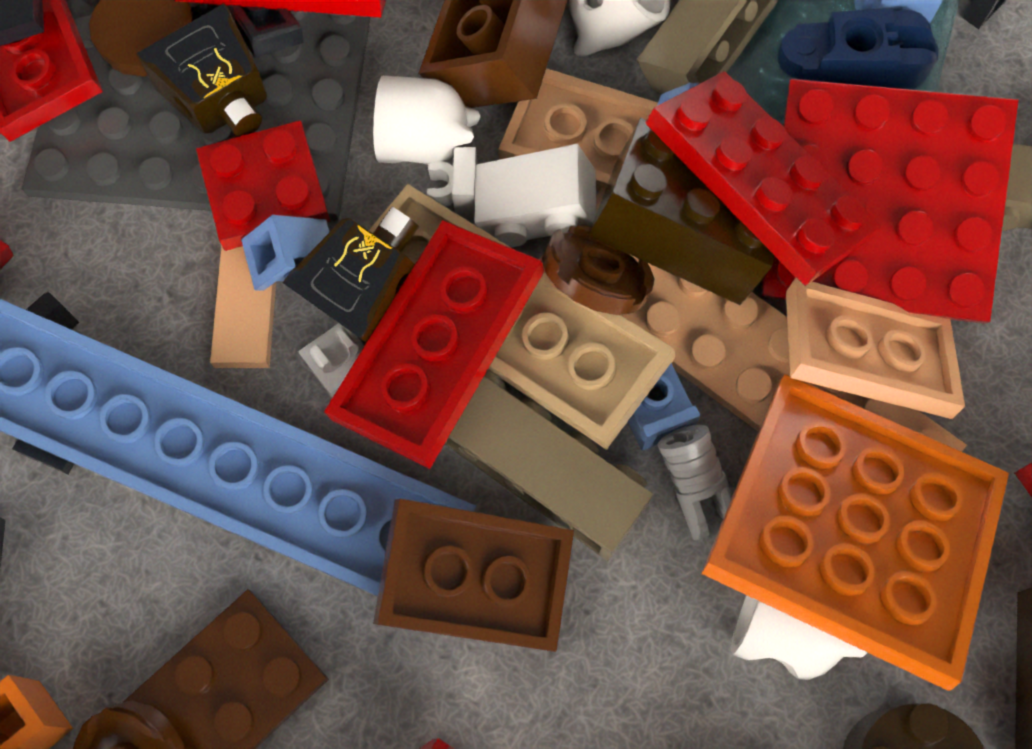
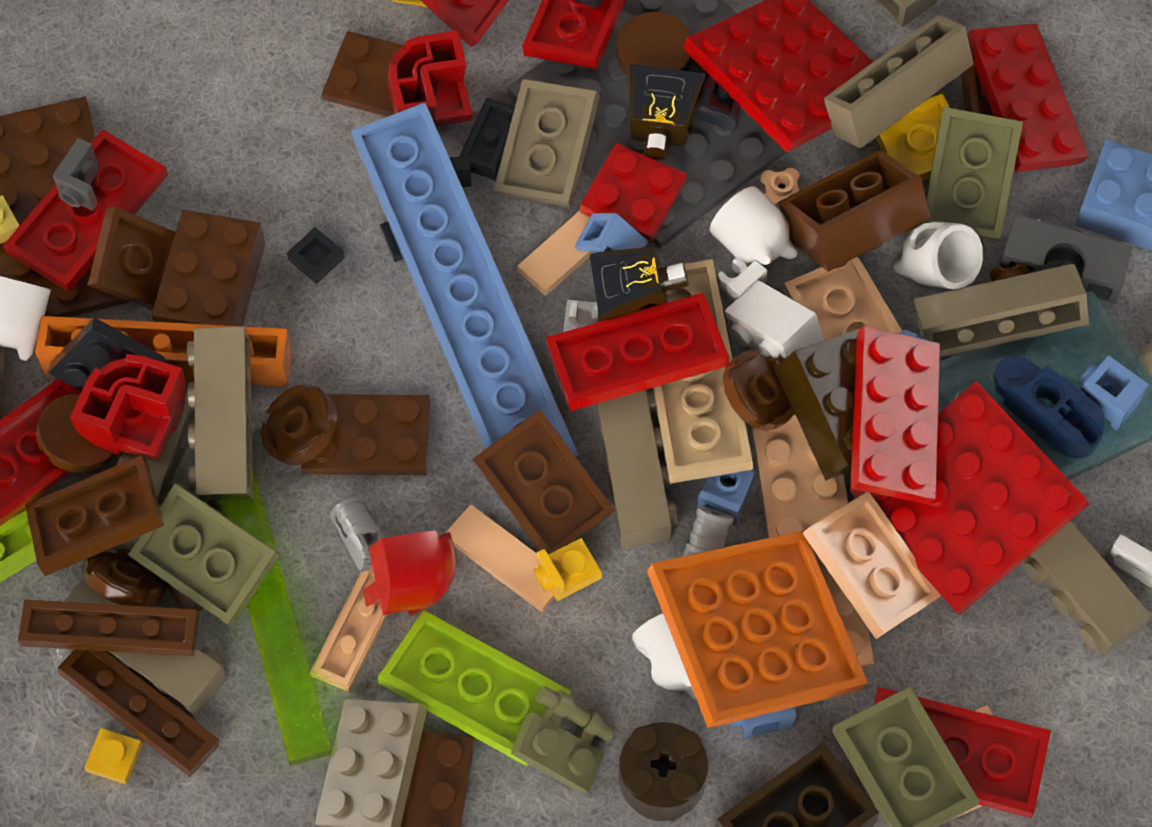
camera: 45 degrees right, 5 degrees down
(53, 253) = (488, 138): none -> black plate
(120, 208) = (547, 143): none -> dark tan plate
(396, 51) = (773, 179): none -> light nougat plate
(506, 690) = (499, 555): none -> light nougat tile
(590, 645) = (566, 569): none -> yellow bracket

